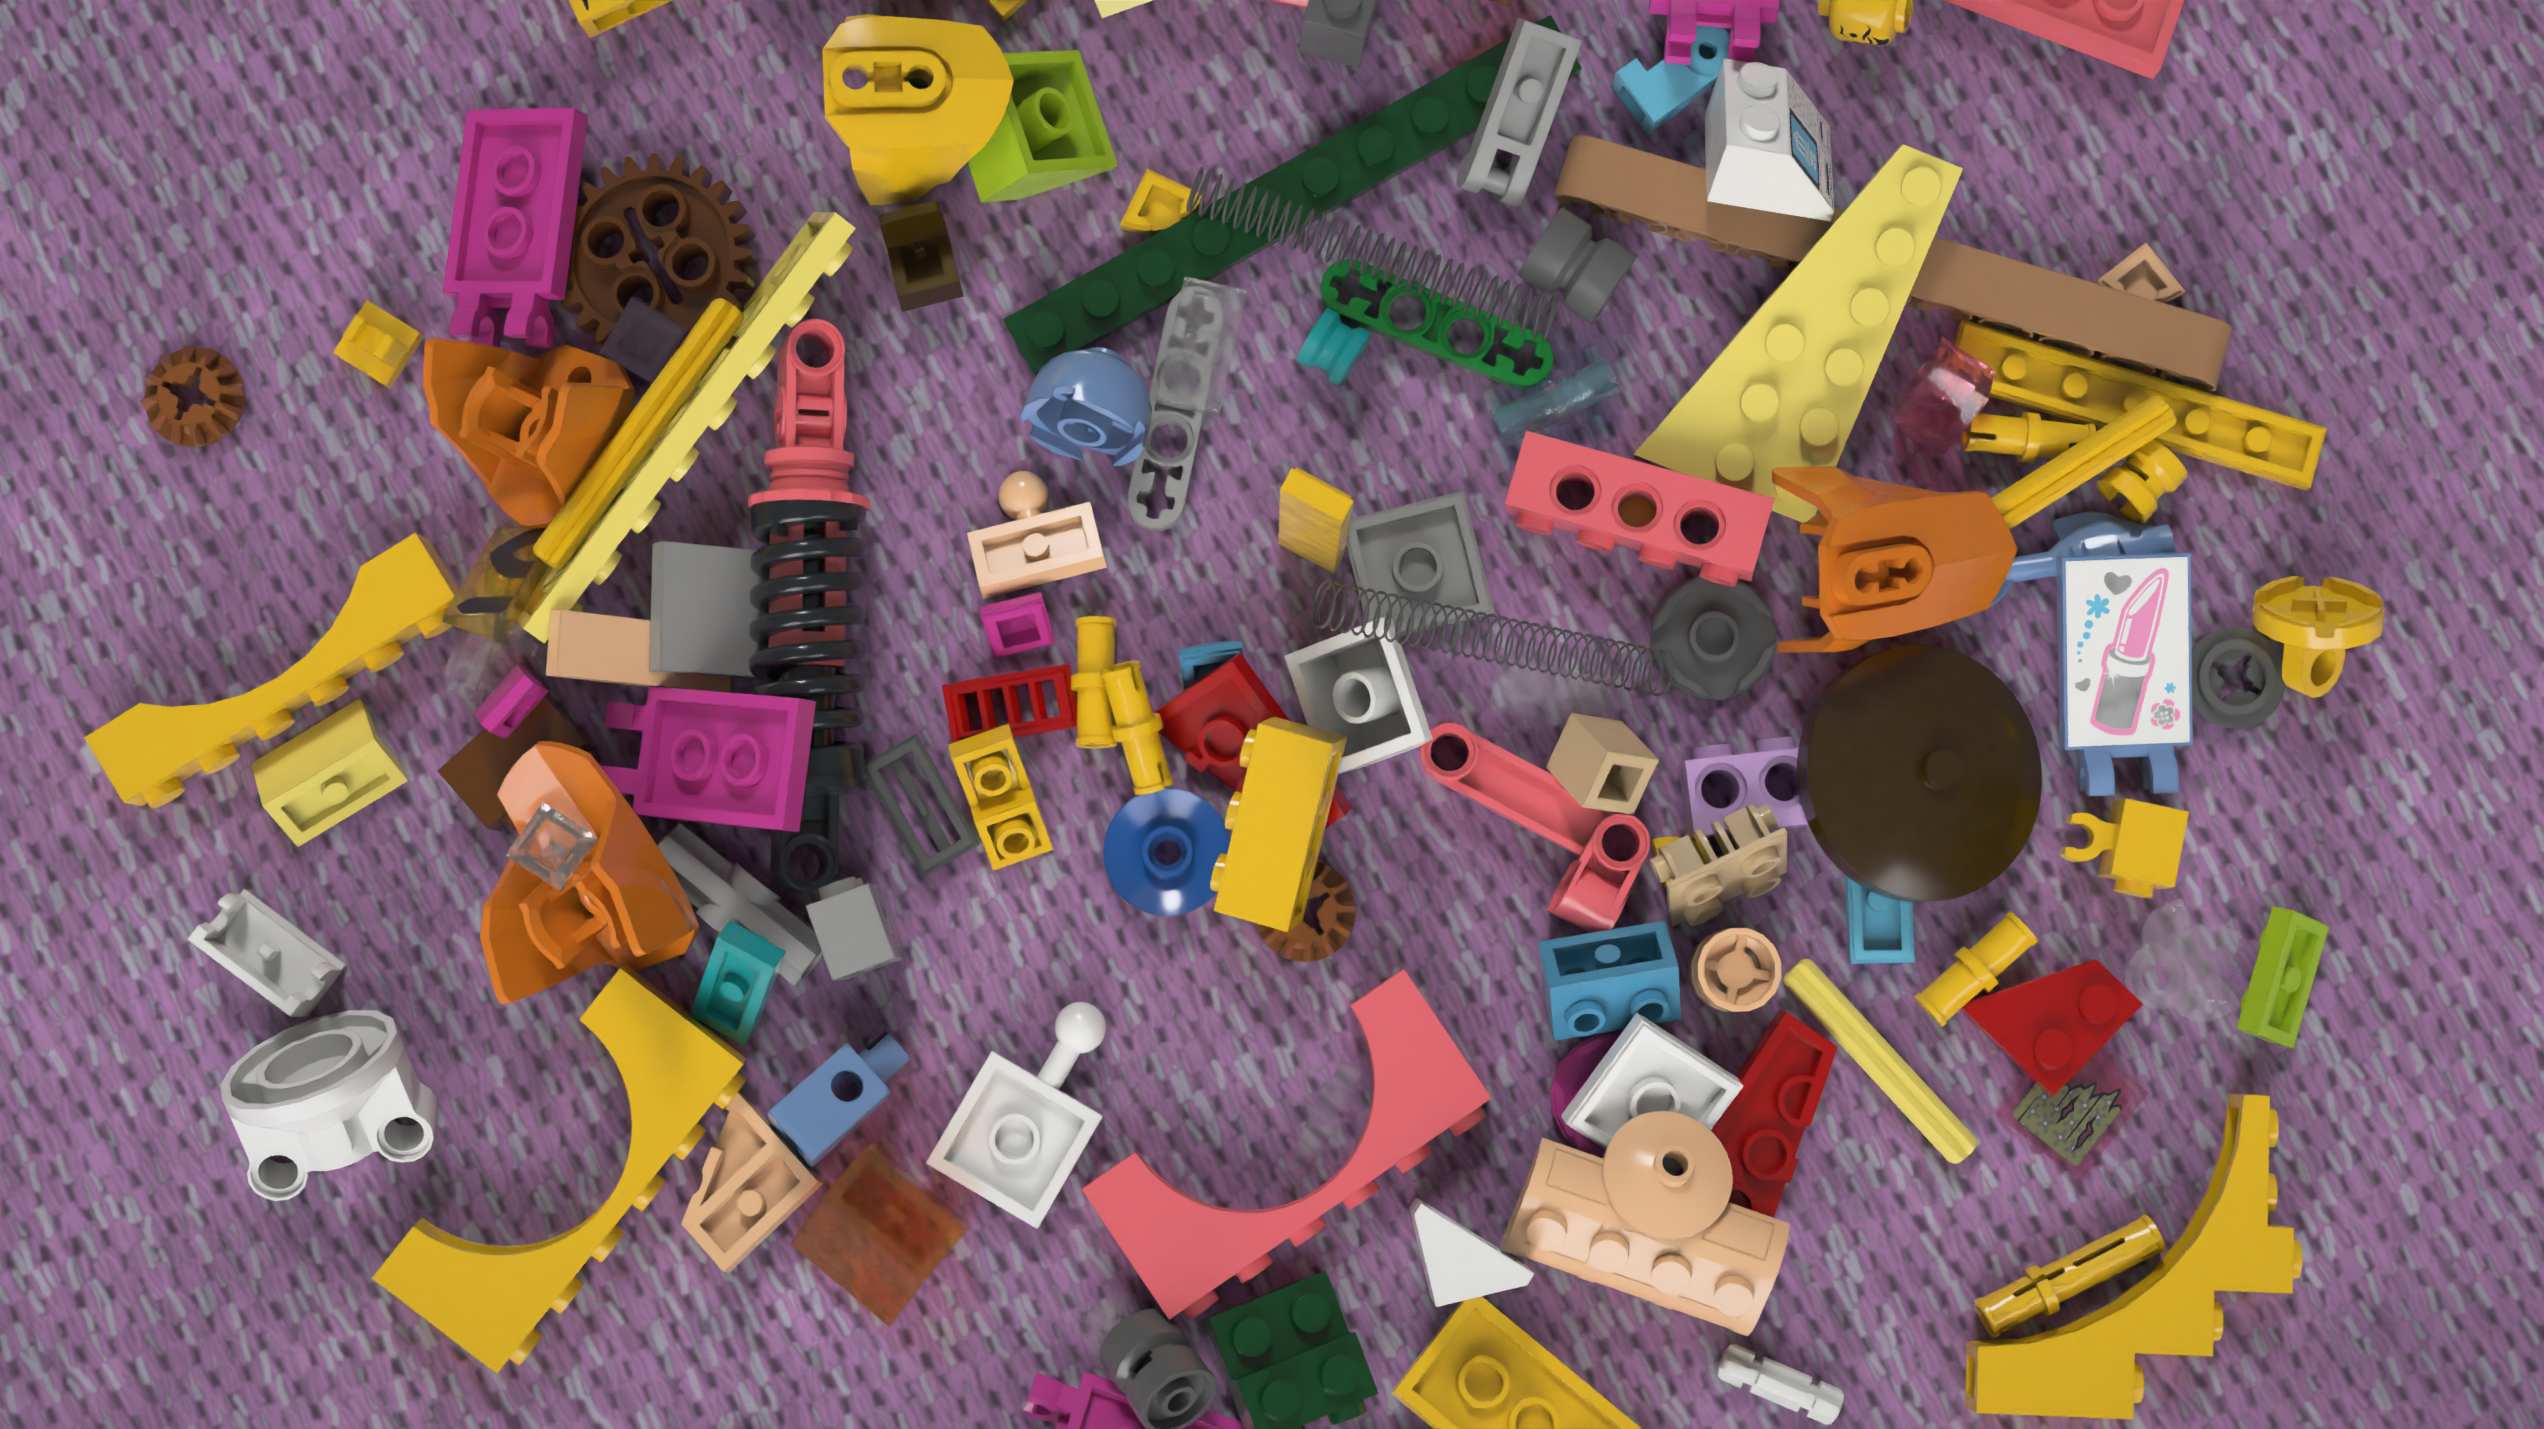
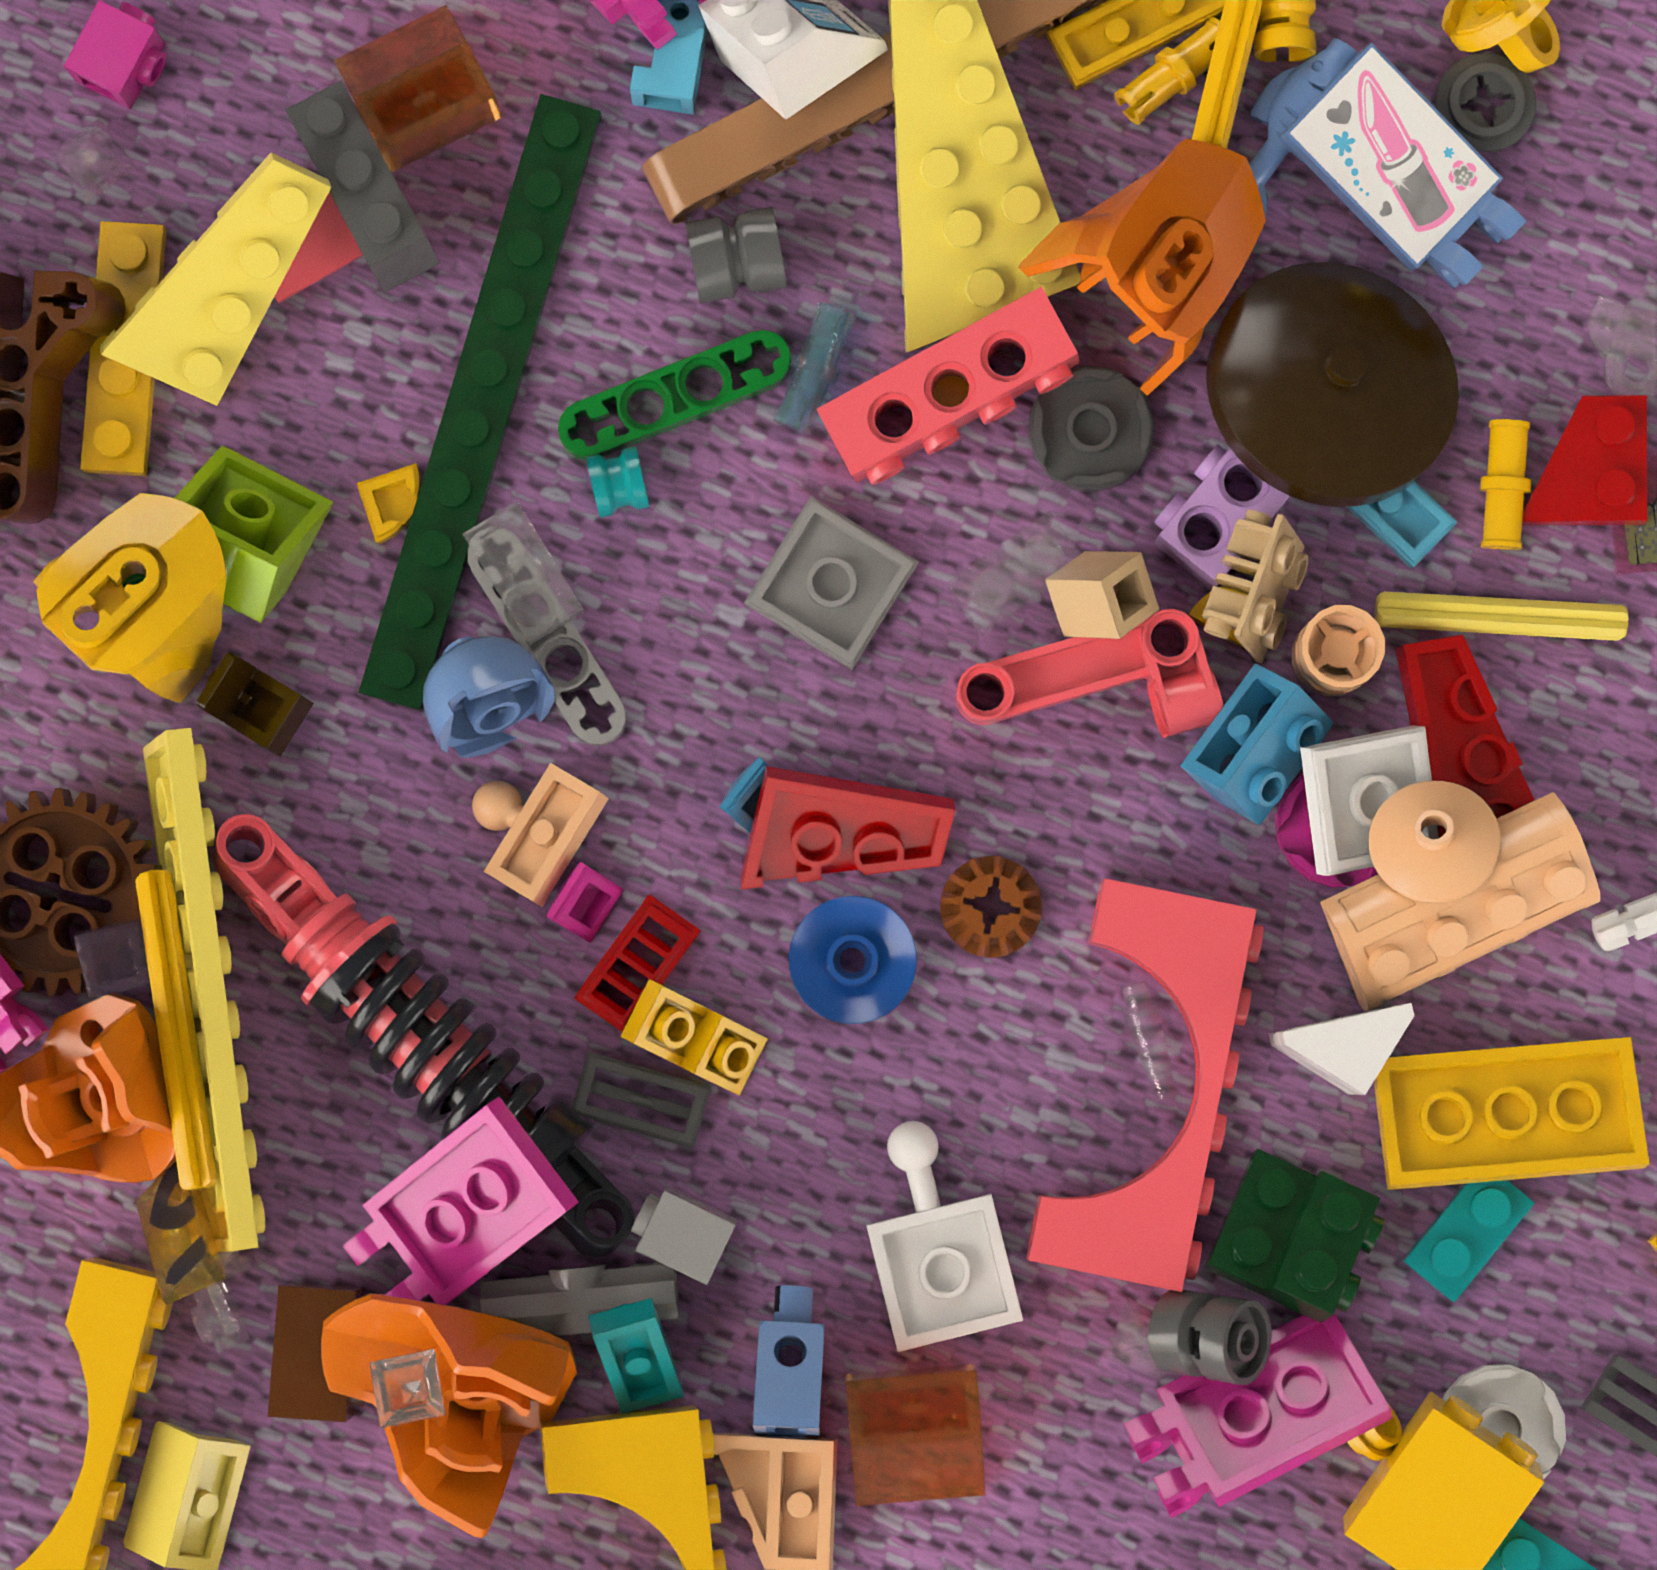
camera: 40 degrees left, 0 degrees up
(511, 701) = (272, 1313): dark pink slope -> none
(612, 652) = (331, 1187): light nougat tile -> none
(702, 610) = (347, 1112): light grey tile -> none
(1094, 654) = (681, 888): yellow pin -> none
(1137, 727) = (744, 891): yellow pin -> none
(1189, 207) = (753, 308): dark grey piece -> none
(1277, 823) = (913, 861): yellow brick -> none
(1314, 519) = (735, 615): yellow tile -> none
(1360, 692) = (884, 714): white slope -> none
(1489, 631) = (1002, 537): dark grey piece -> none
(1519, 111) = (587, 184): light grey plate -> none
(1963, 389) = (1099, 80): clear pink brick -> none
(2137, 845) = (1533, 287): yellow brick -> none

